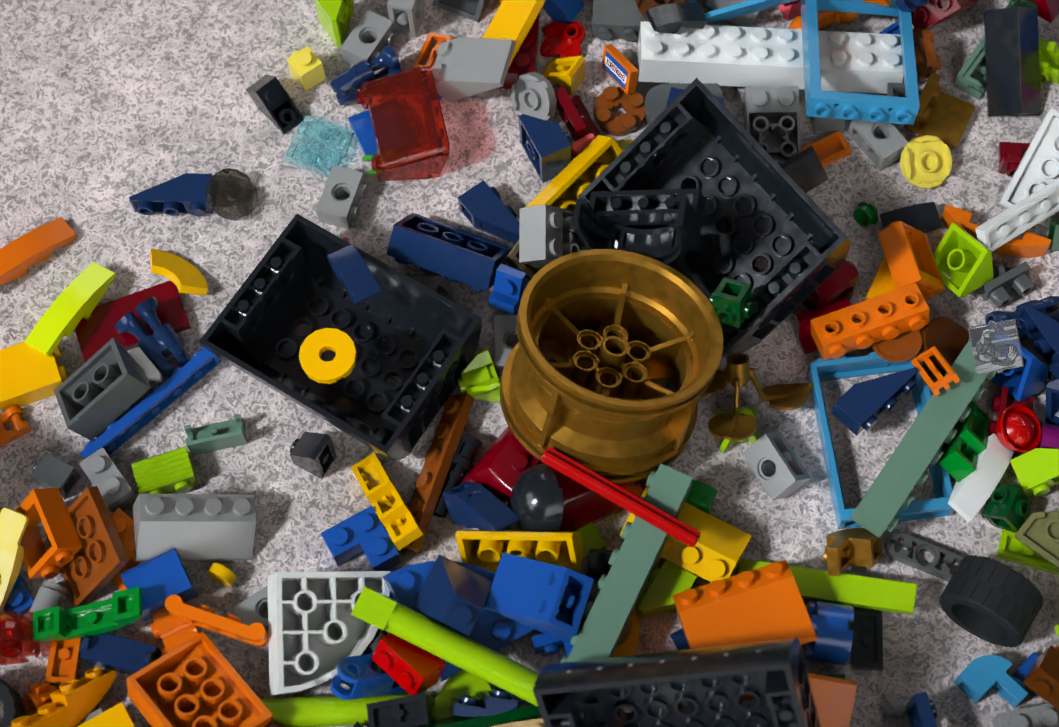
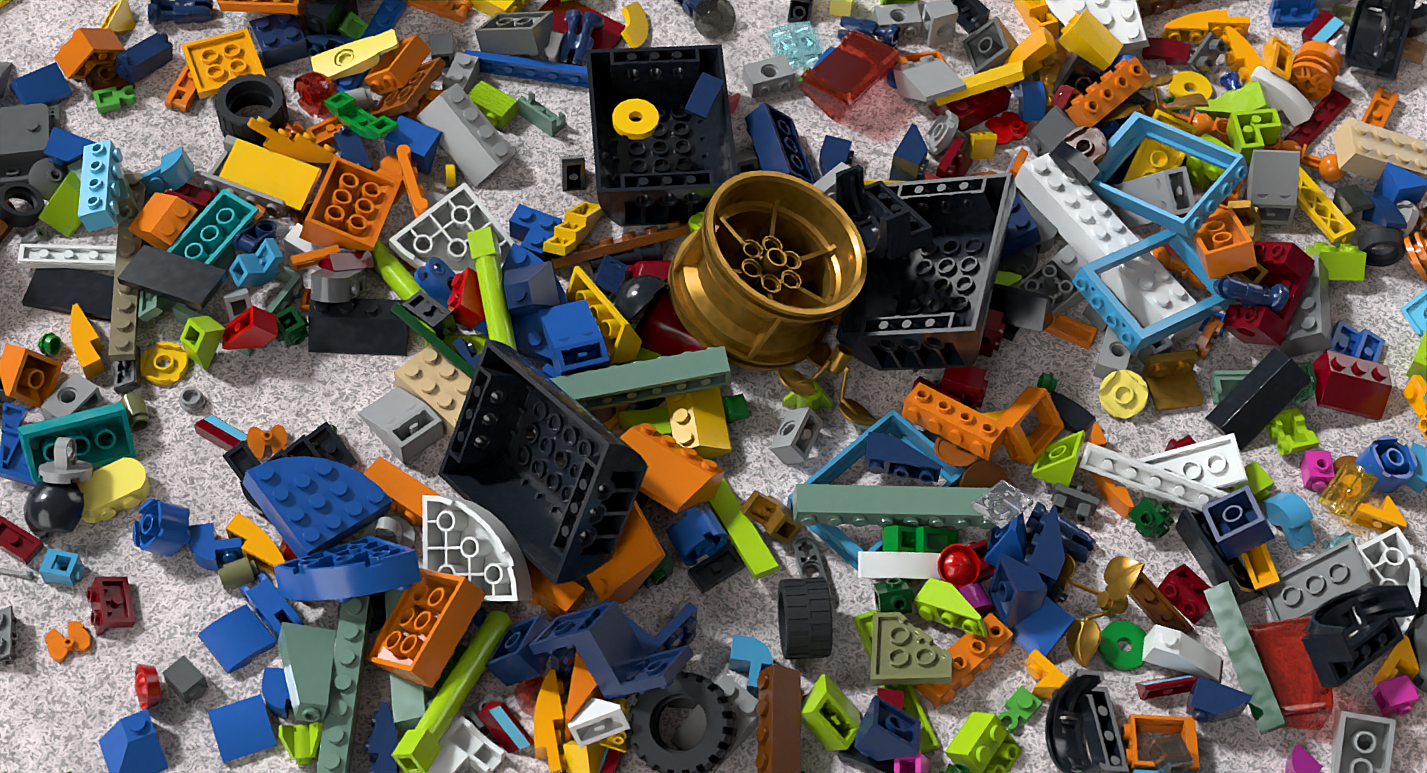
camera: 45 degrees right, 10 degrees down
(621, 497) = (678, 336): red axle -> none
(732, 302) = (871, 304): dark green brick -> none
(942, 381) = (946, 479): orange tile -> none

